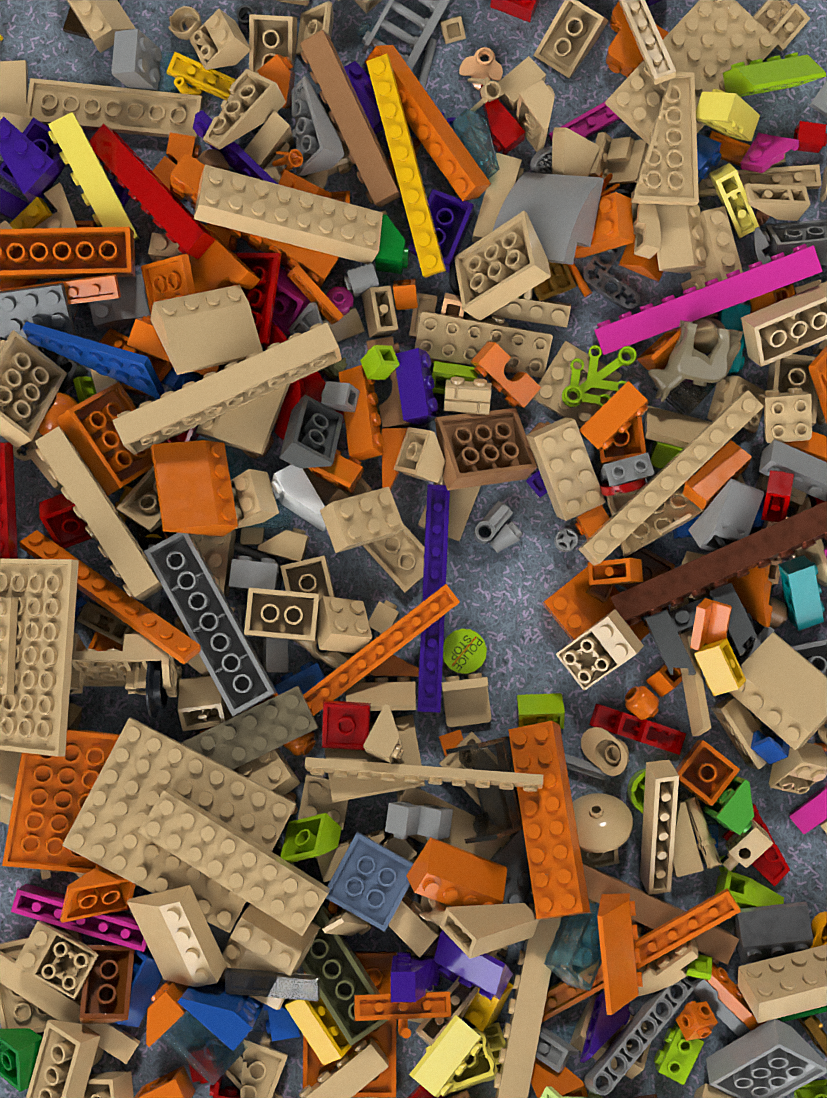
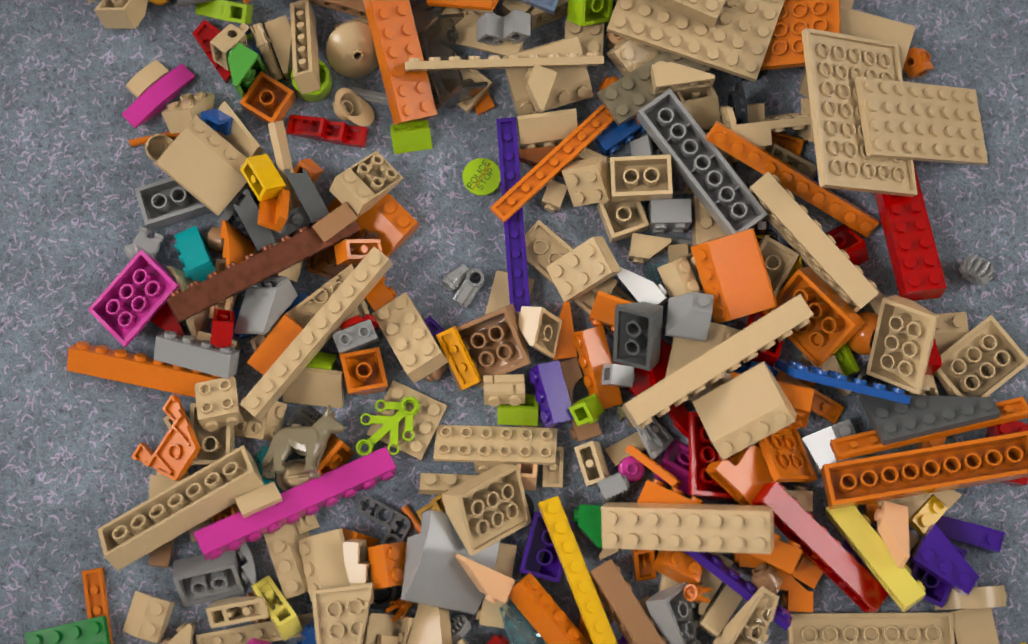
camera: 165 degrees right, 5 degrees down
(68, 199) = (894, 530): none -> light nougat slope
(225, 731) = (678, 77): none -> tan slope
(251, 446) = (689, 316): none -> light grey slope
(345, 724) = (574, 96): red tile -> none
(405, 294) = (572, 486): orange slope -> none
(466, 700) = (475, 137): tan bracket -> none
(491, 363) = (485, 425): orange arch -> none
(504, 193) = (488, 581): none -> light nougat slope
(514, 437) = (458, 357): none -> light orange plate
(570, 539) = (402, 277): light grey wheel -> none
(614, 416) = (371, 383): orange brick -> none
(640, 603) = (335, 222): none -> medium nougat slope
(642, 702) = (325, 152): orange head -> none
(749, 301) = (258, 499): none -> tan tile

